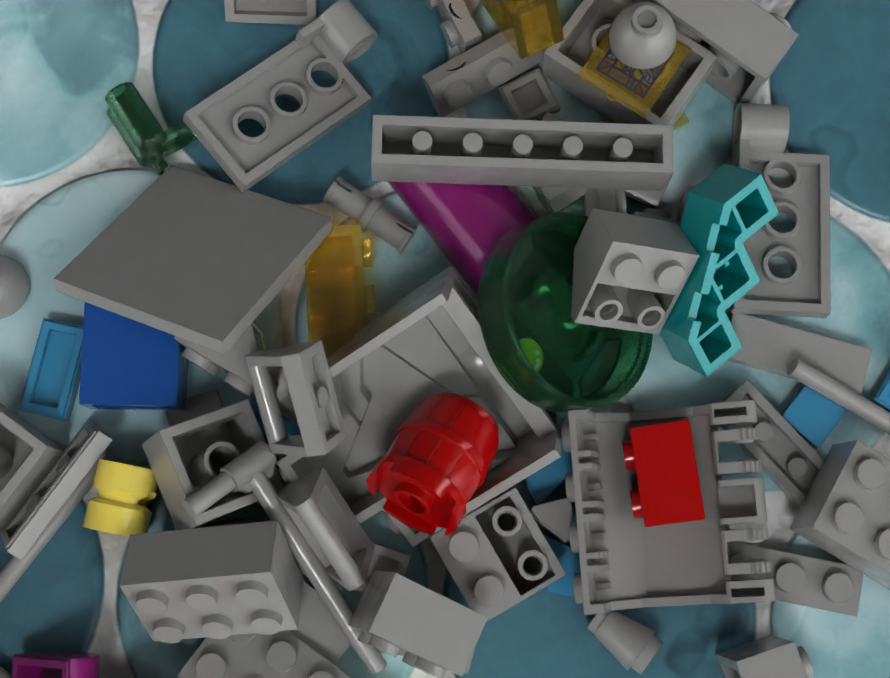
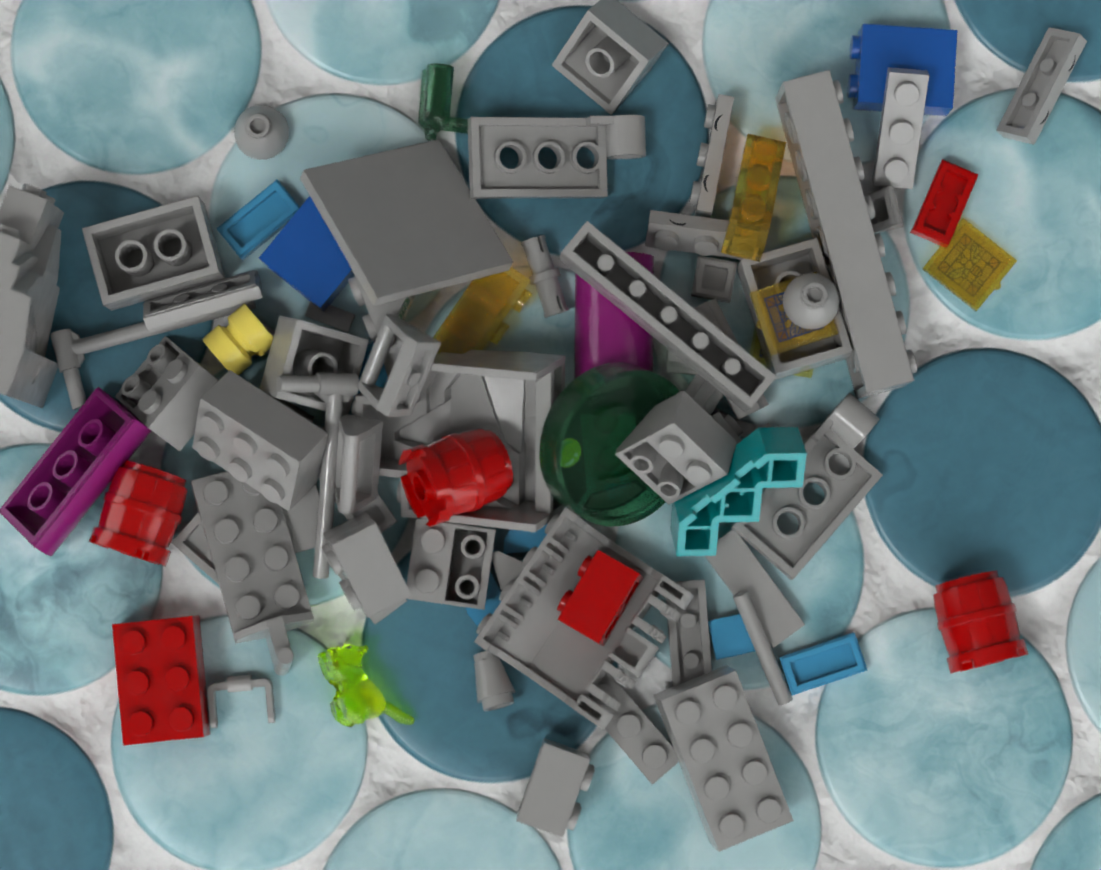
camera: 35 degrees right, 5 degrees up
(86, 607) = (167, 392): none -> light grey slope

